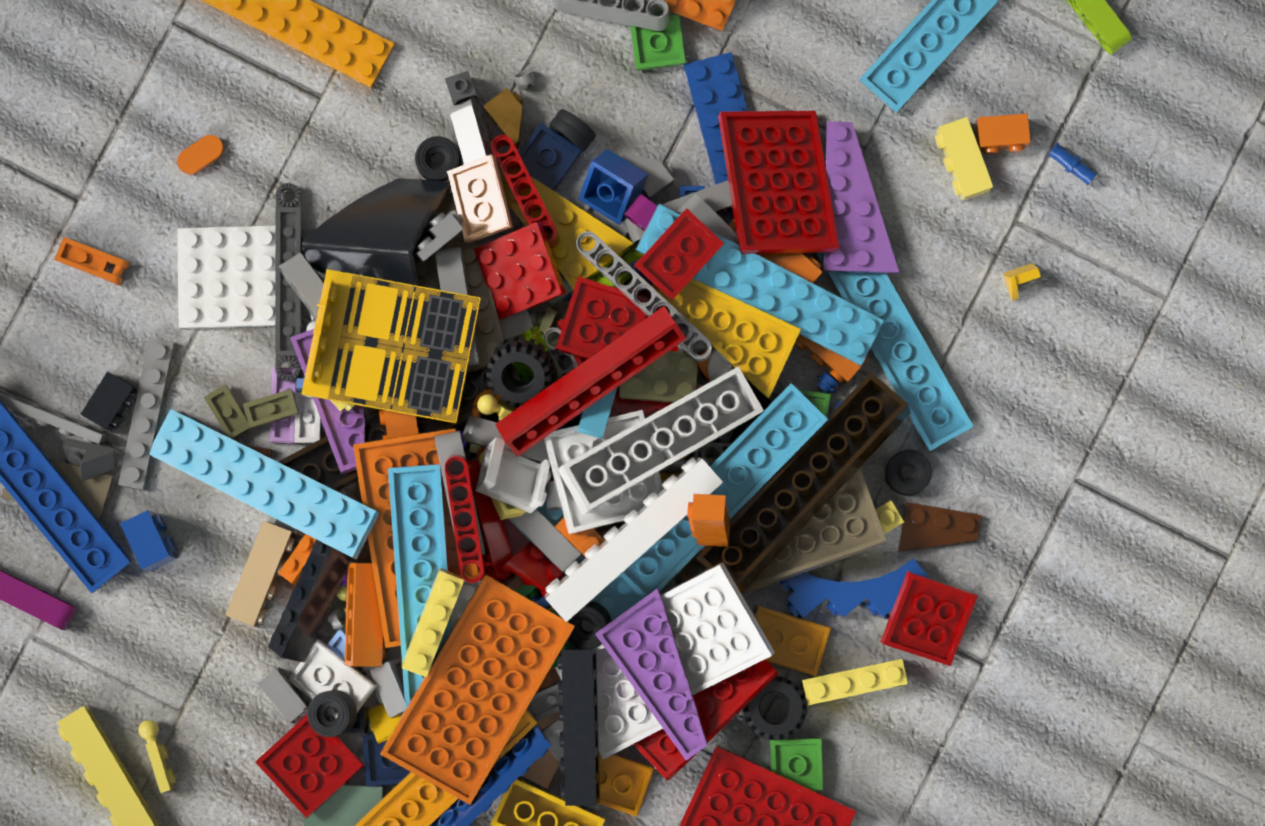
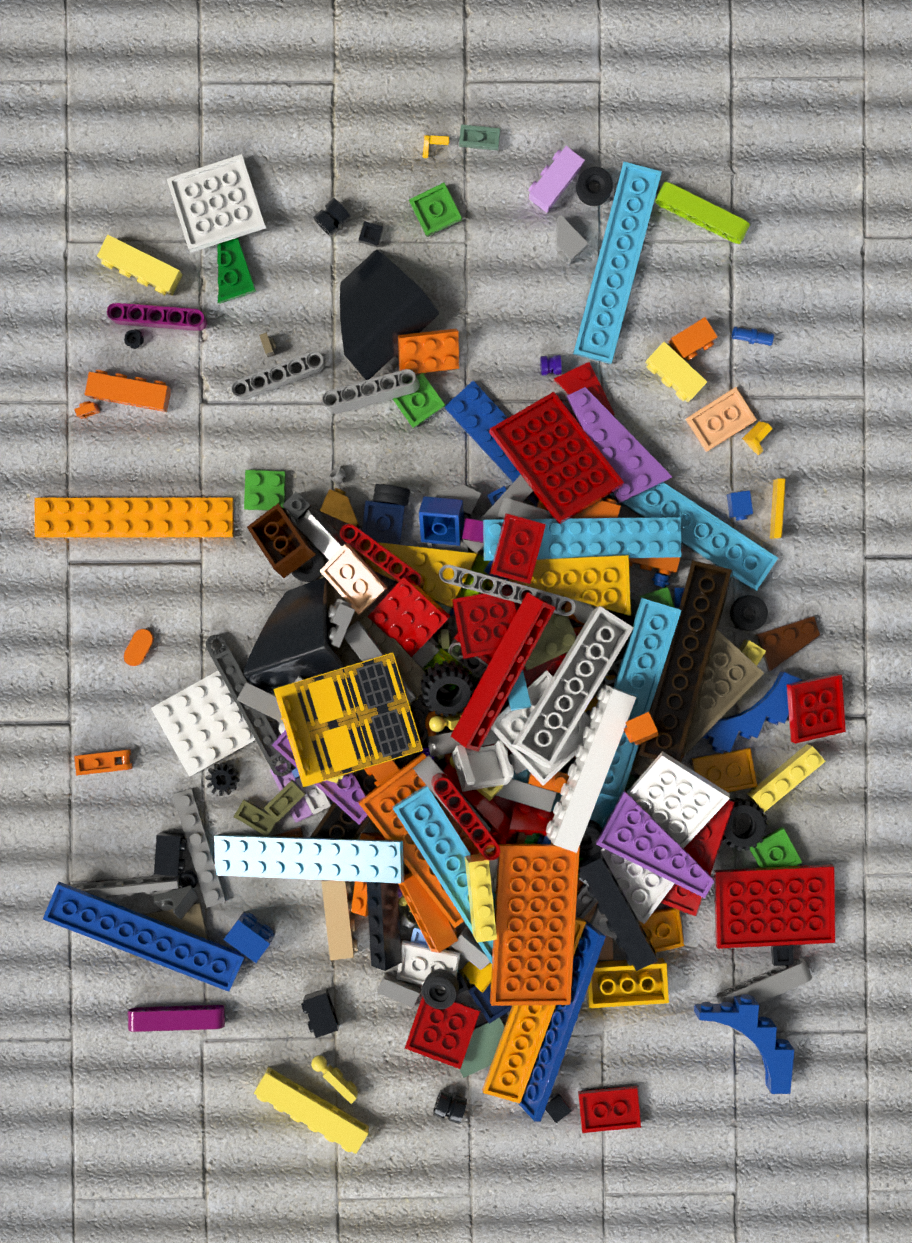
camera: 30 degrees left, 5 degrees up
(115, 436) = (188, 874): none -> black plate
(181, 672) = (320, 1013): none -> black brick
(223, 350) = (215, 779): none -> black gear
(422, 116) = (281, 540): none -> reddish brown brick
(434, 54) = (264, 489): none -> bright green plate
(827, 79) = (550, 365): none -> dark purple wheel
(859, 112) = (583, 377): none -> red wing
(960, 344) = (739, 505): none -> blue brick
(989, 238) = (721, 419): none -> light nougat tile
(1001, 371) = (777, 508): none -> yellow tile

